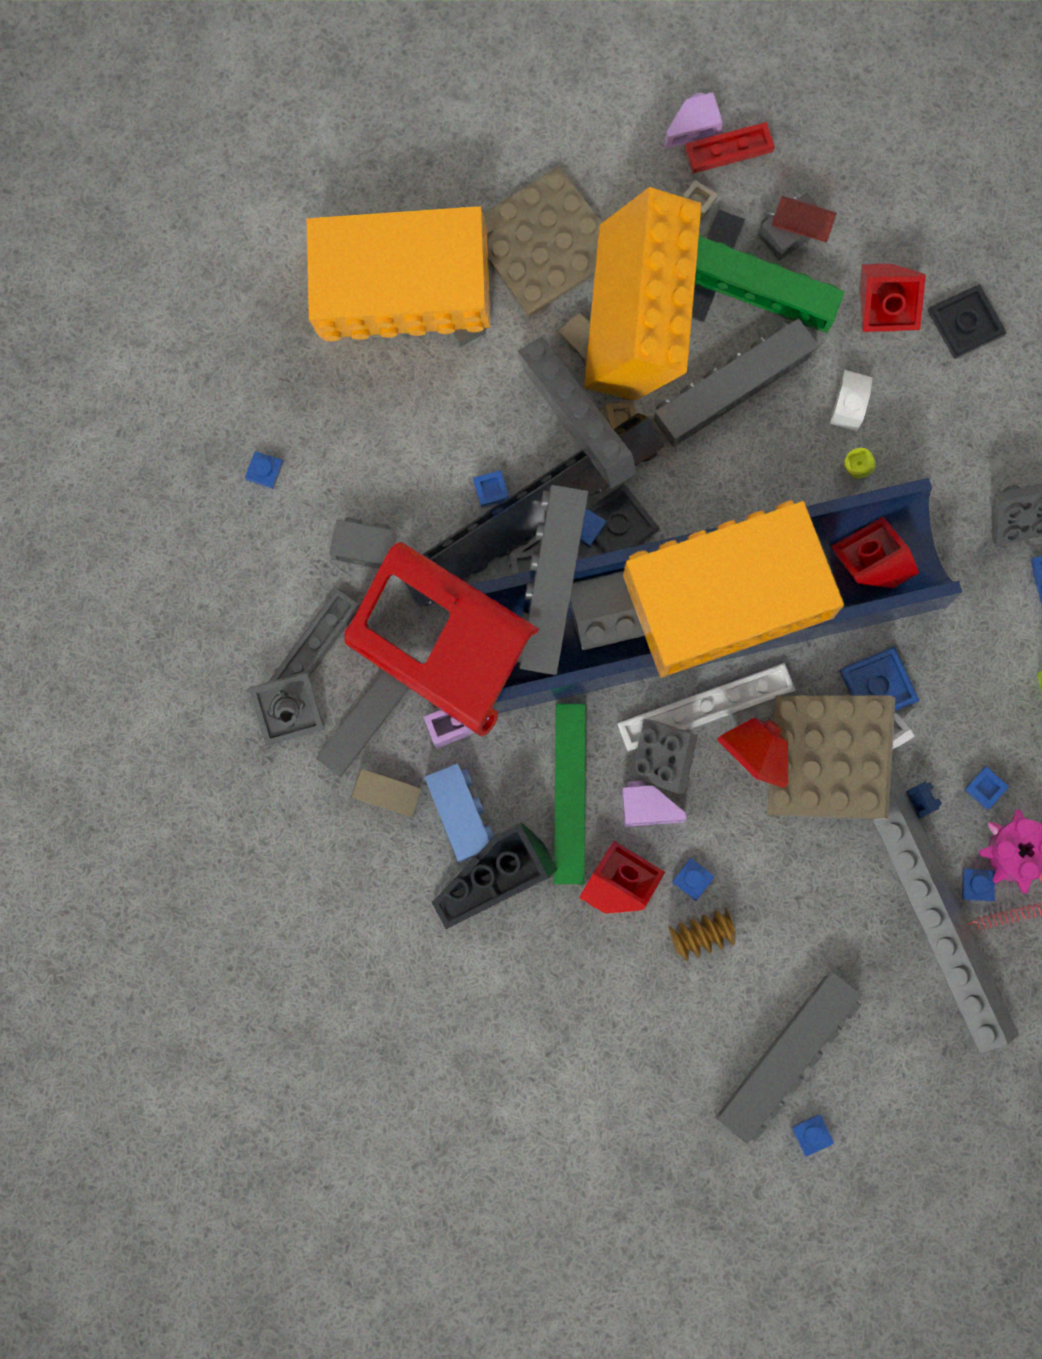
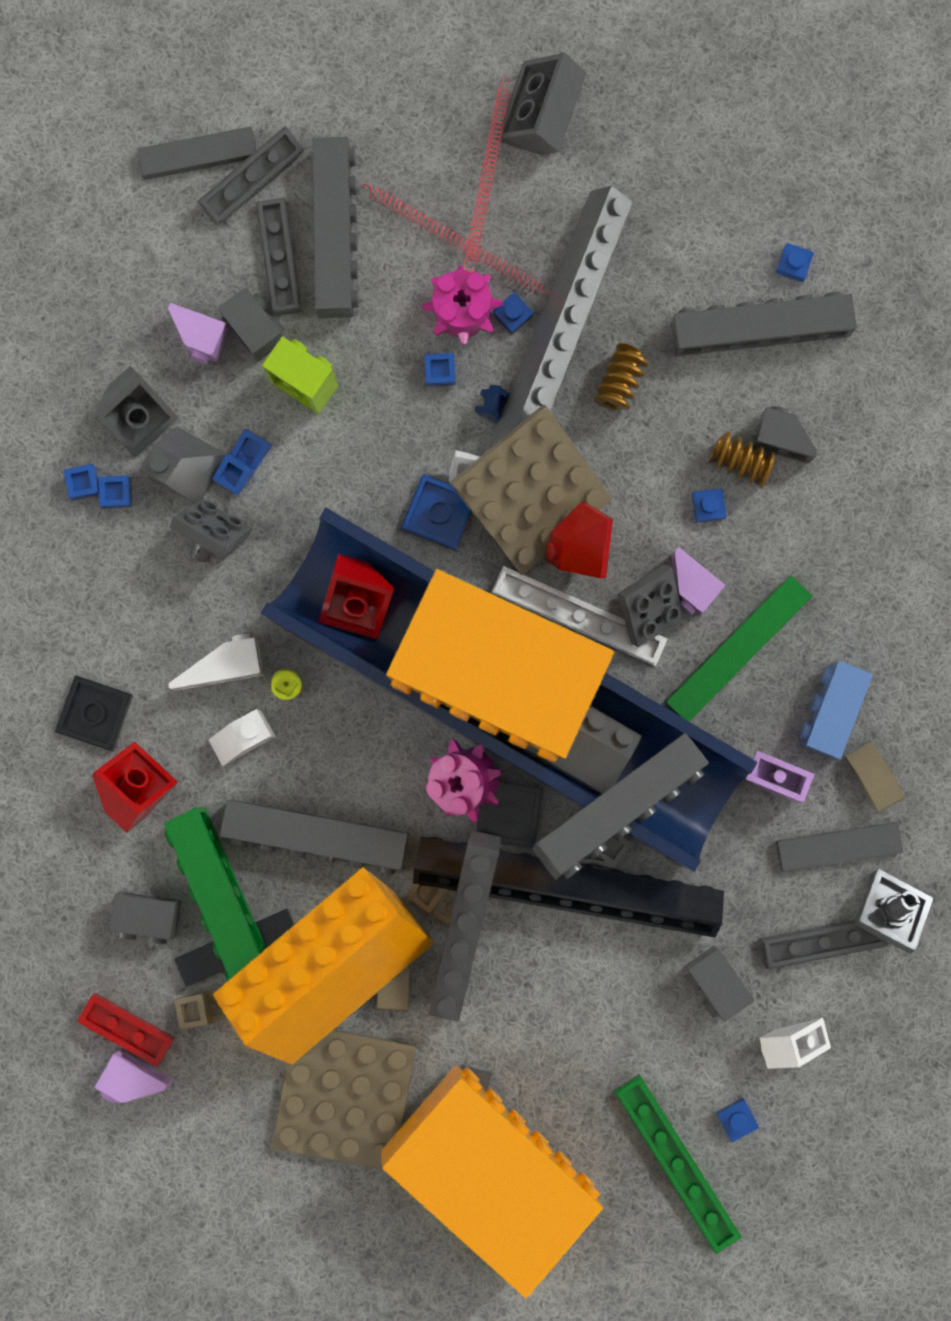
camera: 135 degrees left, 5 degrees up
(271, 554) = (795, 1044): none -> white slope
(279, 404) = (677, 1164): none -> green tile
(470, 654) = (731, 810): red piece -> none
(490, 488) = (579, 933): blue plate -> none
(499, 871) = (851, 638): black wedge -> none
(591, 527) = (534, 831): blue tile -> none
(621, 882) = (763, 549): red slope -> none
(673, 507) = (463, 781): none -> dark pink brick
(692, 983) = (783, 435): none -> dark grey slope
(804, 219) = (134, 910): clear red tile -> none
(850, 910) = (621, 377): none -> pearl gold piece
(915, 436) = (227, 663): none -> white slope

